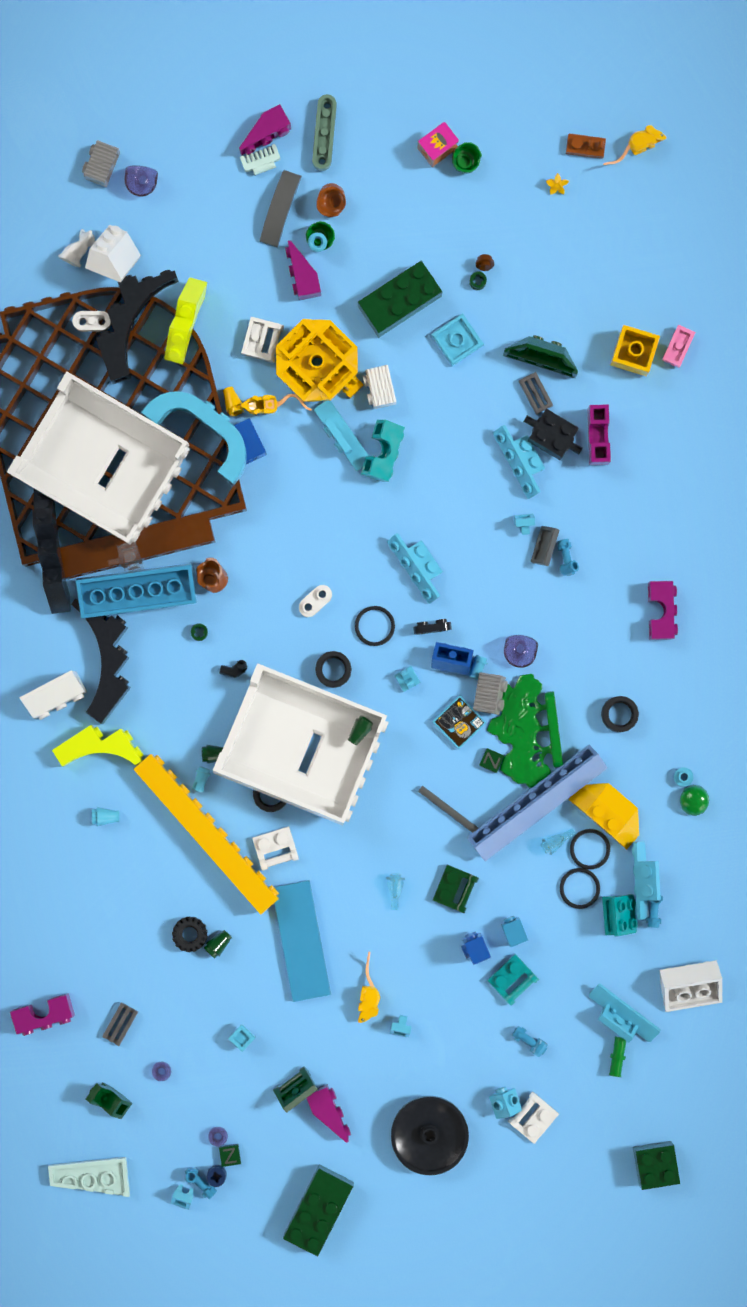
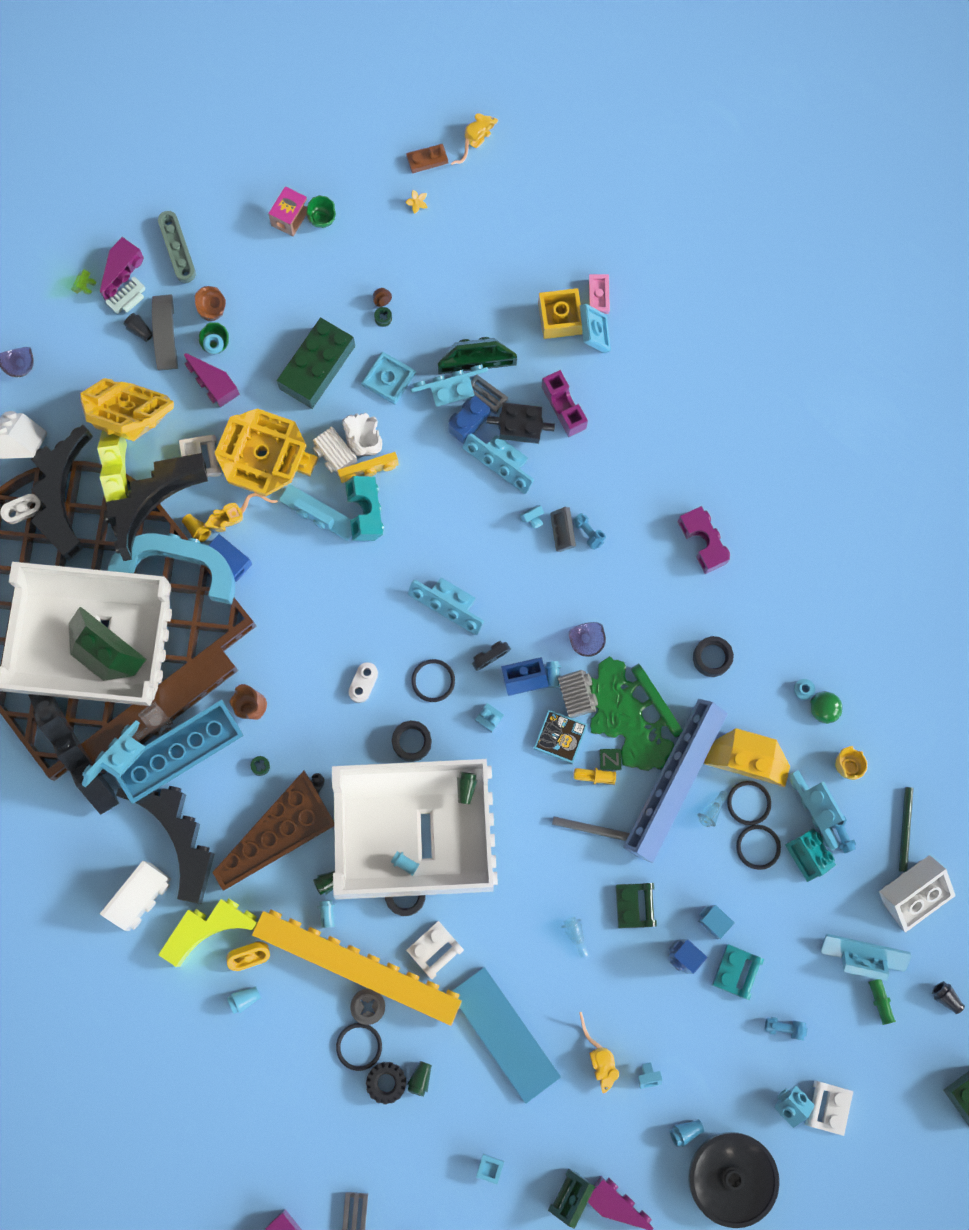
camera: 25 degrees left, 10 degrees down
(87, 577) = (118, 757): none -> medium azure bracket
(109, 476) = (101, 648): none -> dark green wedge
(123, 784) = (248, 956): none -> yellow plate
(163, 898) = (338, 1047): none -> black tyre
(197, 693) = (286, 825): none -> reddish brown wing
(198, 877) = (357, 1007): none -> dark grey gear
(201, 357) = (146, 494): none -> black arch
(216, 269) = (124, 408): none -> yellow piece
(226, 129) = (81, 282): none -> clear neon green tile
(259, 195) = (137, 326): none -> black cone
(281, 768) = (404, 863): none -> medium azure pin
(402, 415) = (370, 467): none -> yellow plate
(410, 383) = (362, 434): none -> white hair
(410, 1082) = (686, 1132): none -> dark azure cone
(472, 768) = (595, 776): none -> yellow axle
(507, 375) = (451, 388): none -> medium azure bracket
(509, 411) = (469, 419): none -> blue brick
(658, 378) = (595, 328): none -> medium azure tile
(673, 1078) = (947, 996): none -> black cone
(690, 856) = (851, 763): none -> yellow hair
(709, 930) = (906, 828): none -> dark green bar

